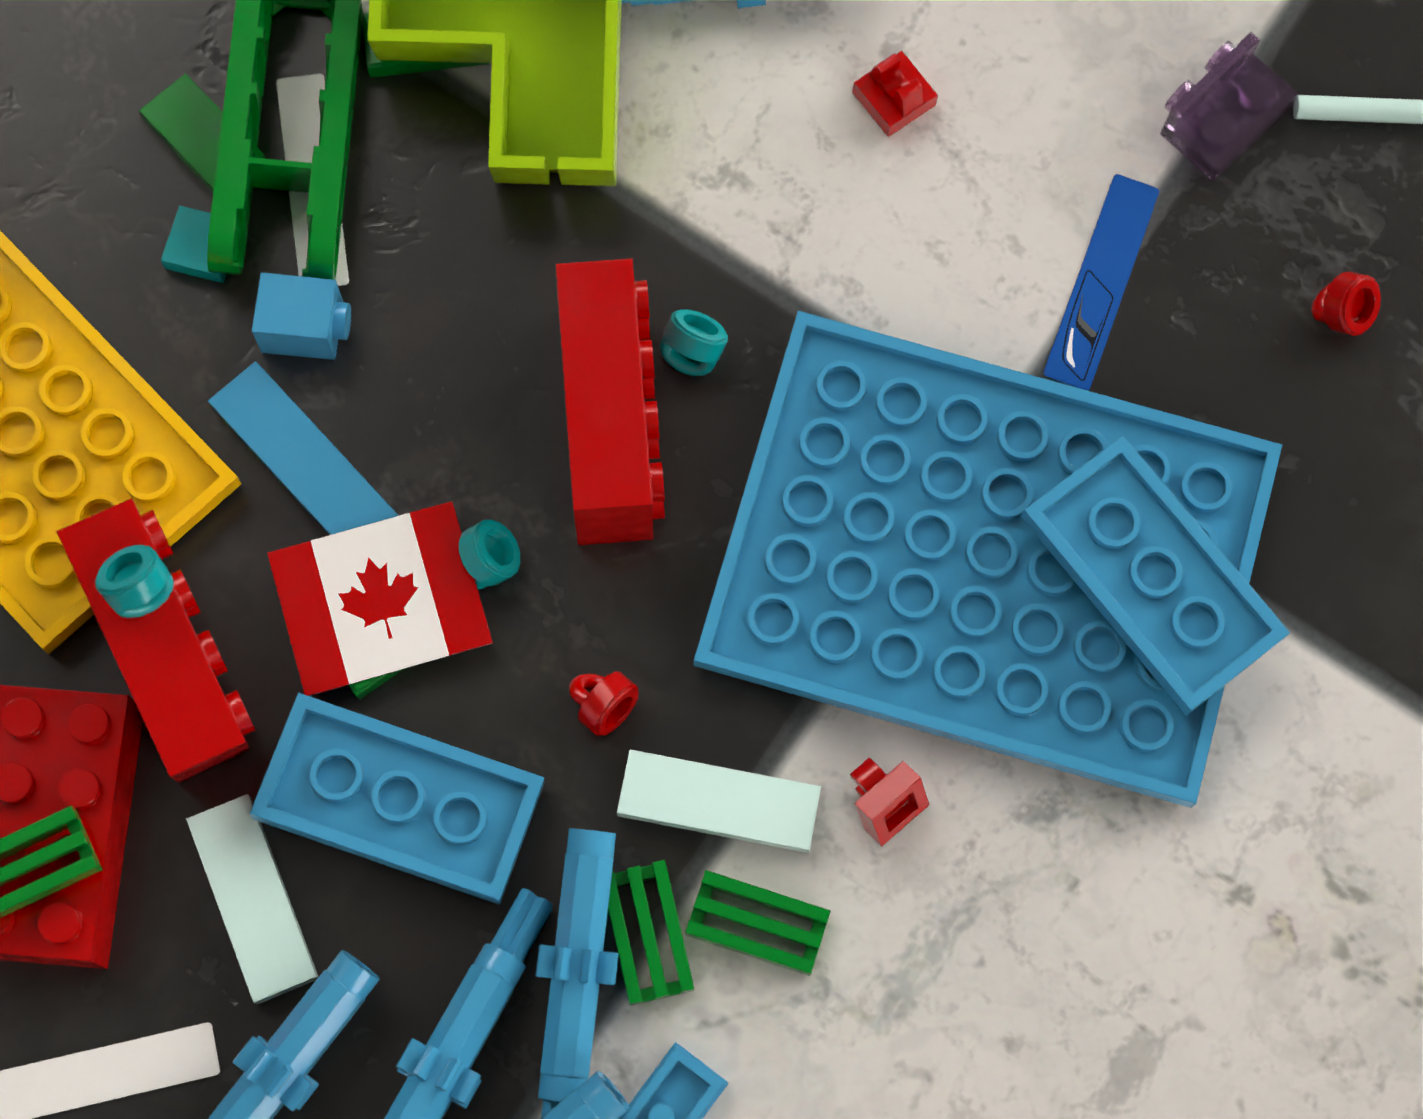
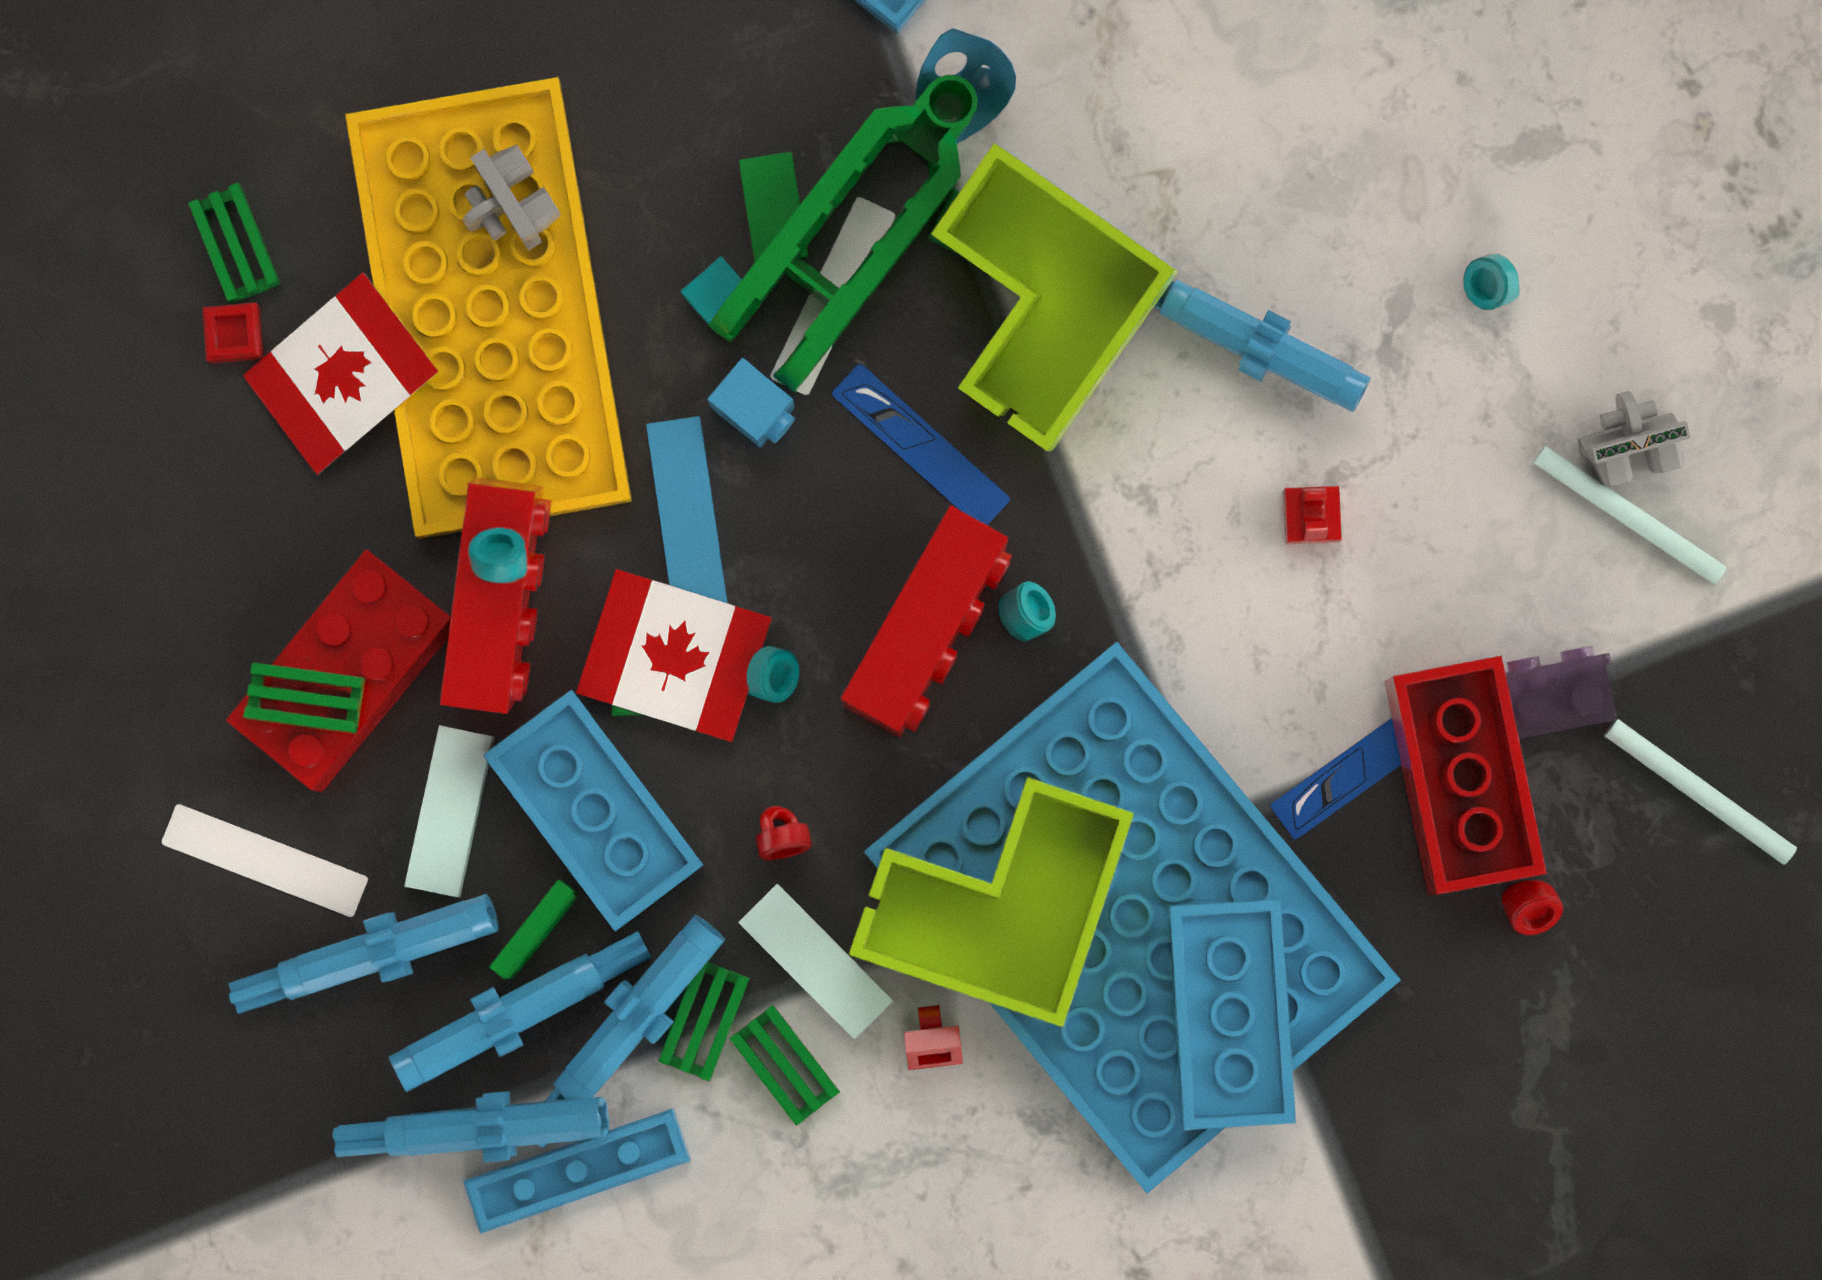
camera: 40 degrees right, 10 degrees up
(417, 955) = (534, 930): none -> green tile
(472, 258) = (920, 445): none -> blue sticker
(895, 635) = (1007, 938): none -> lime piece
(1204, 221) = (1465, 775): none -> red brick

